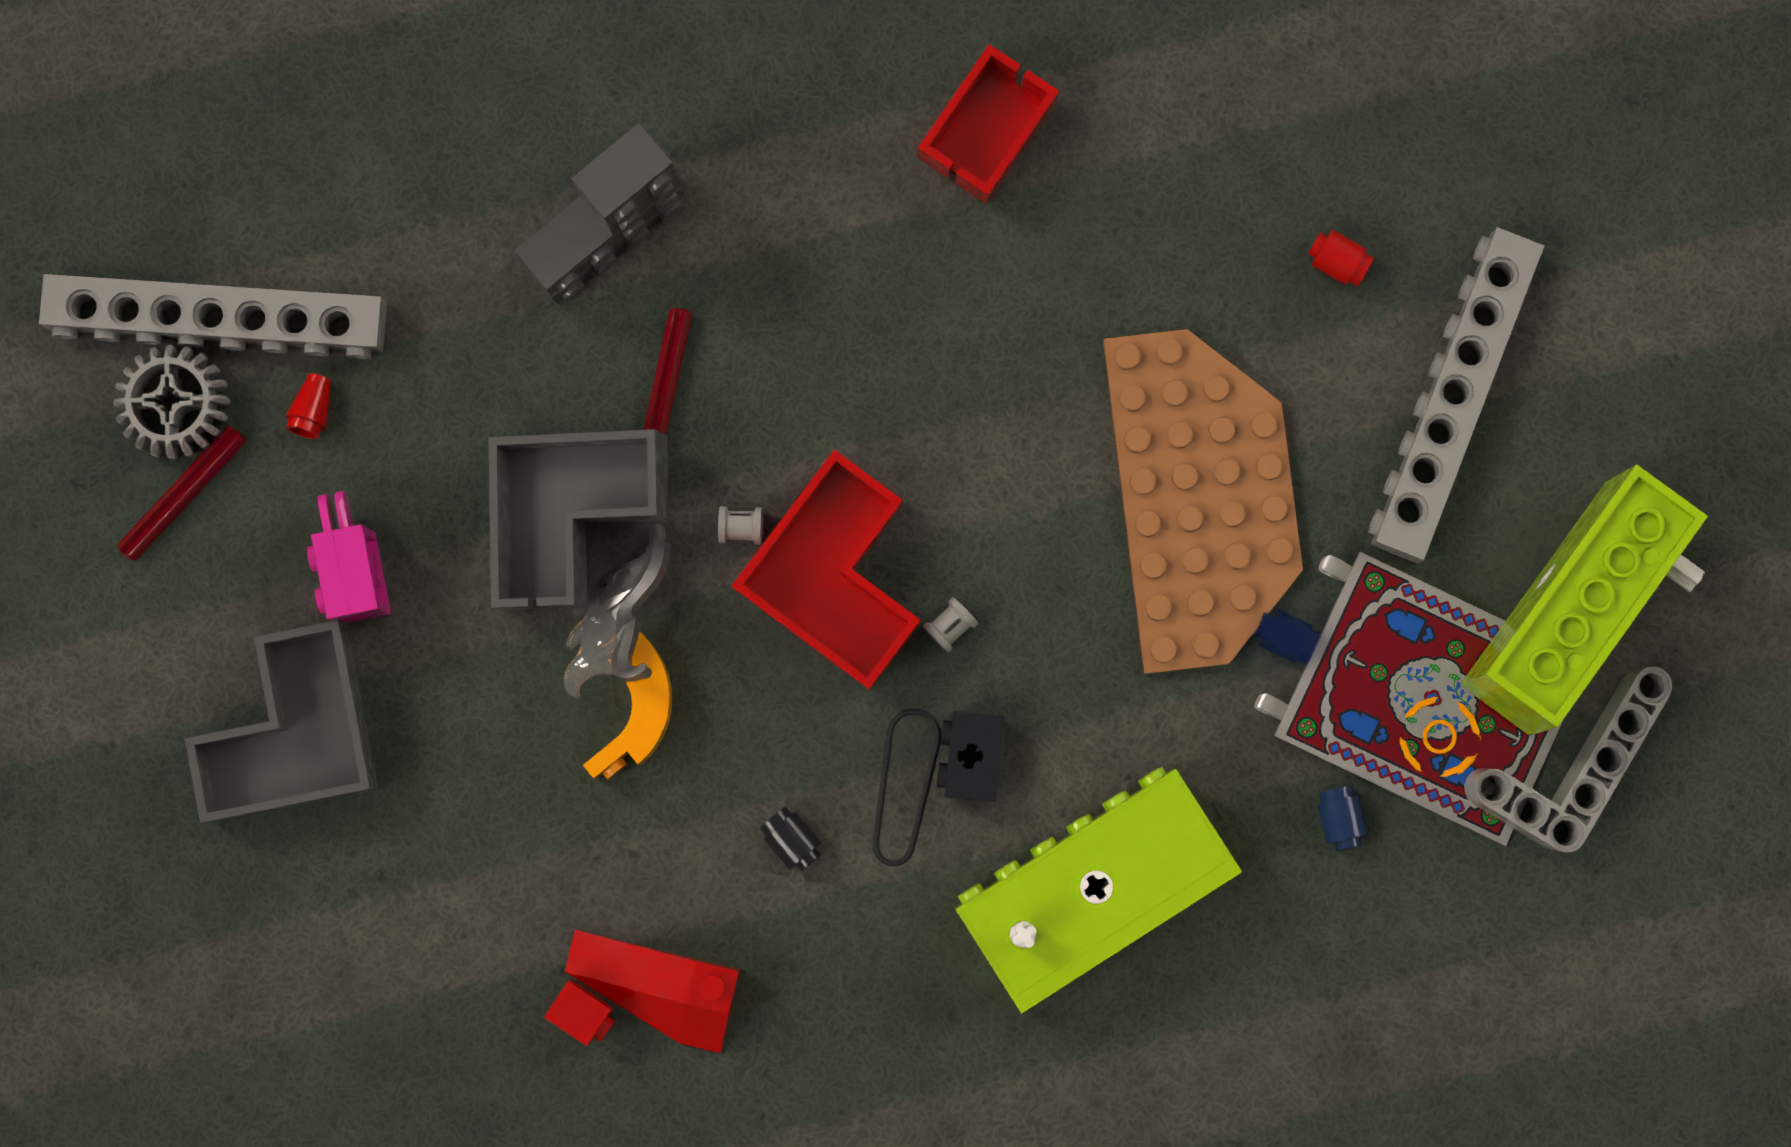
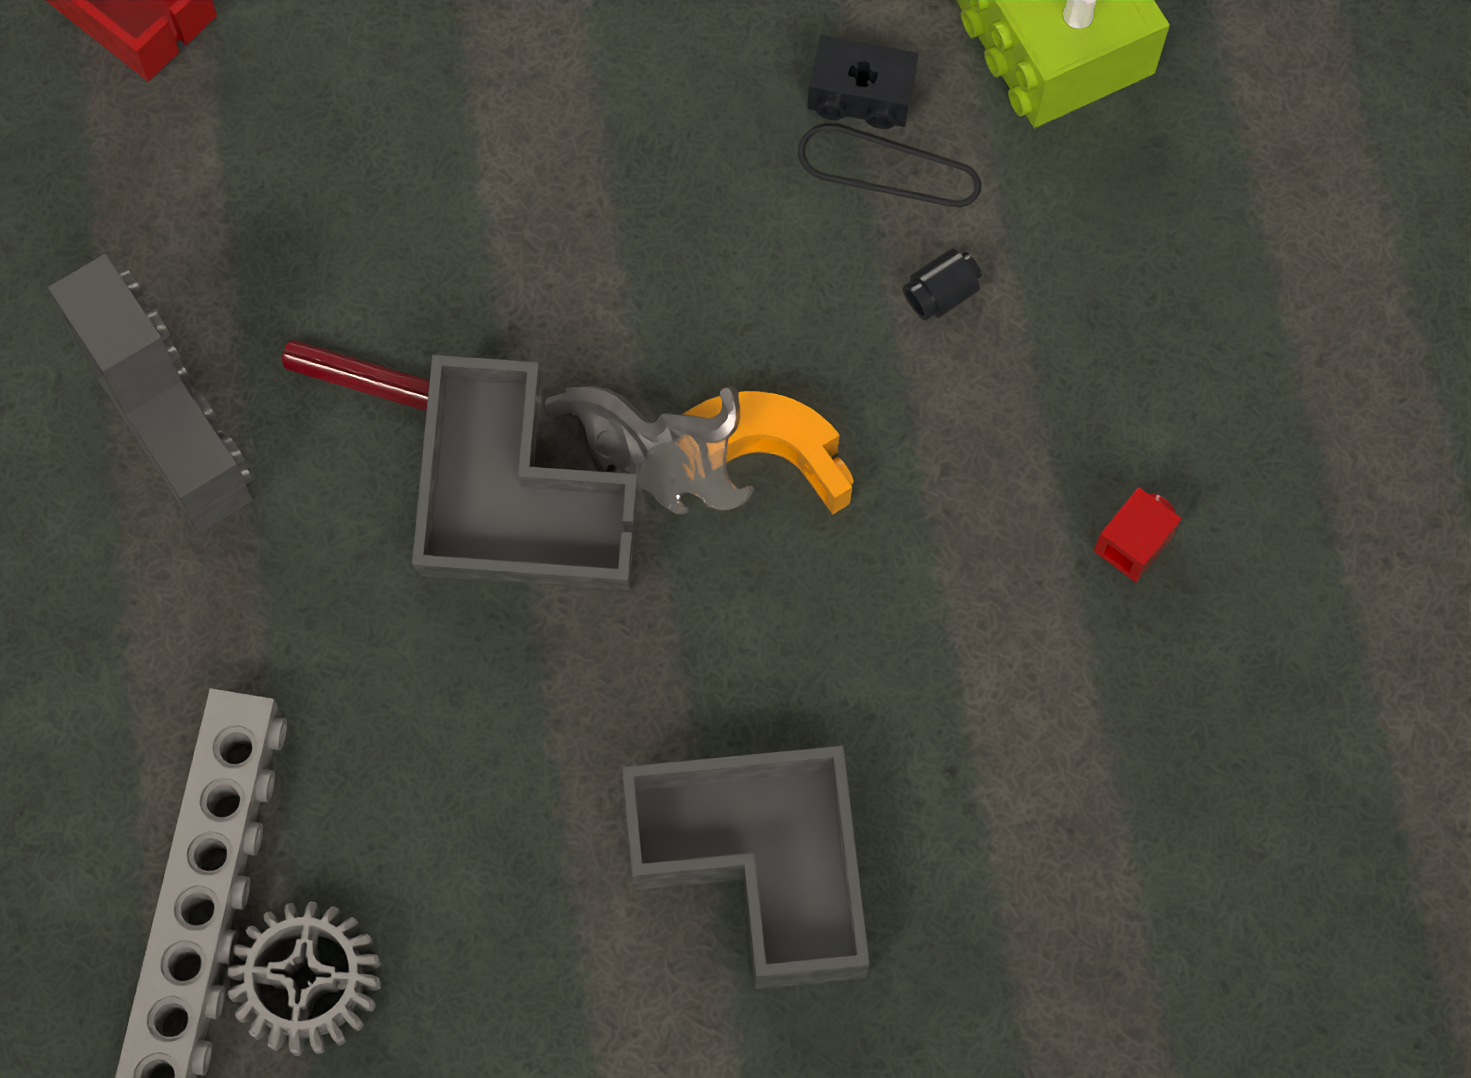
camera: 90 degrees left, 15 degrees down
(181, 493) = (428, 981): dark red axle -> none
(310, 407) = (341, 802): red cone -> none
(347, 565) = (550, 757): dark pink brick -> none
(666, 990) = (1116, 439): red wedge -> none
(740, 525) = (559, 306): light grey bush -> none
(809, 579) = (634, 227): red piece -> none
(950, 624) = (705, 93): light grey bush -> none

